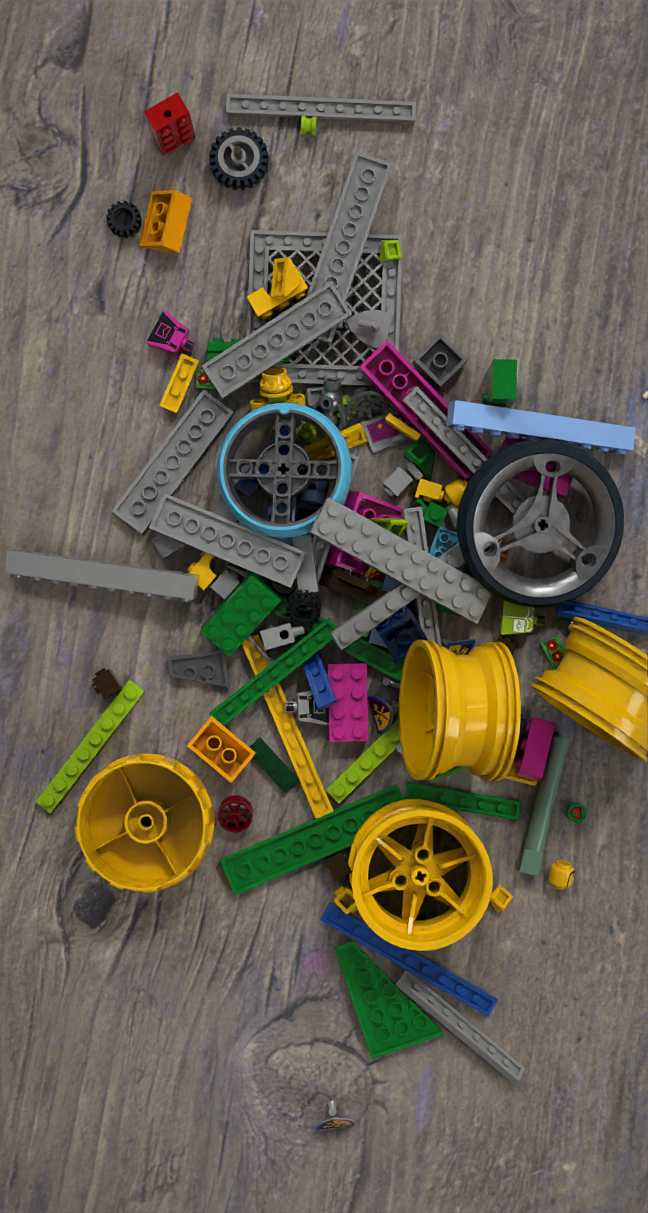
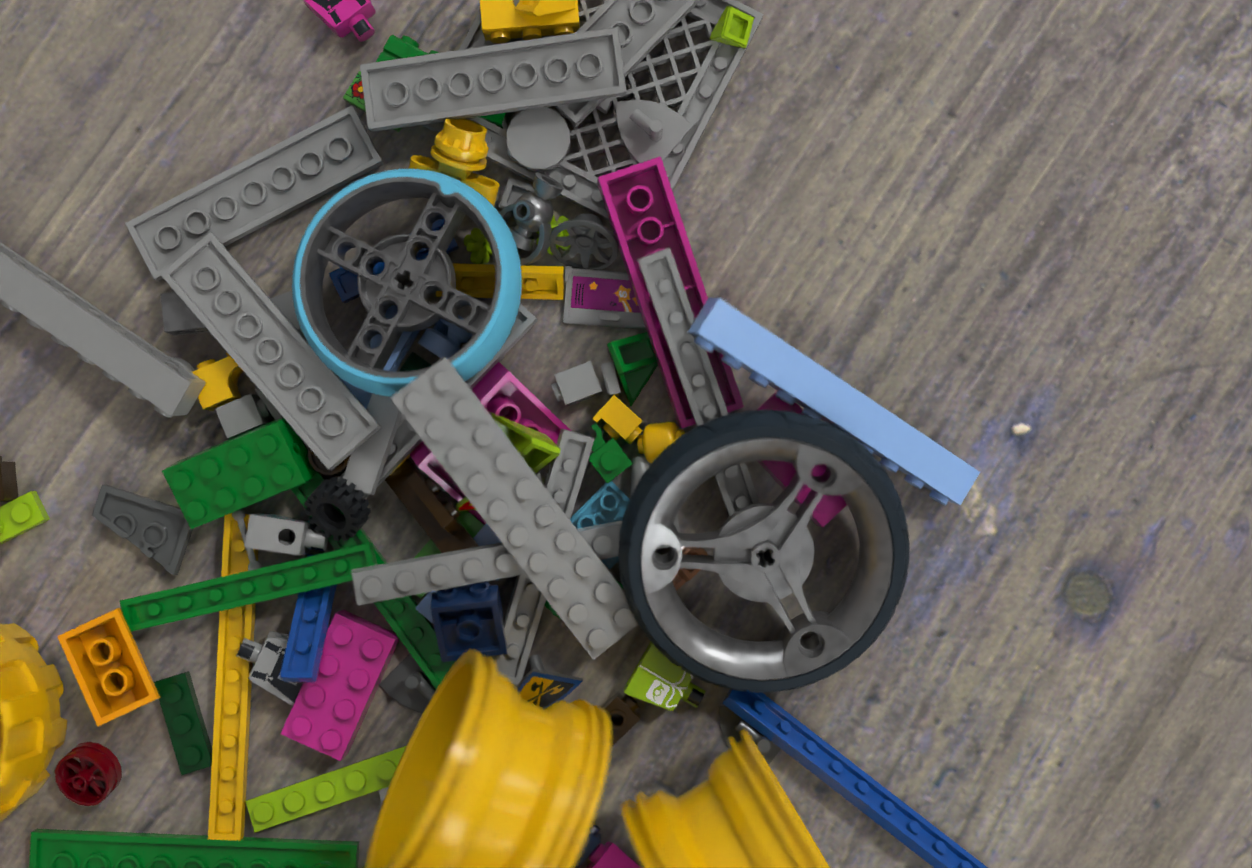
camera: 20 degrees right, 0 degrees up
(179, 383) = (321, 80): yellow plate -> none
(314, 360) = (538, 139): none -> light grey tile
(382, 713) = (386, 727): shield -> none
(402, 427) = (623, 303): yellow tile -> none
(439, 361) = (729, 230): flat silver brick -> none
(501, 383) = (805, 306): green brick -> none
(554, 651) = (695, 757): tile -> none

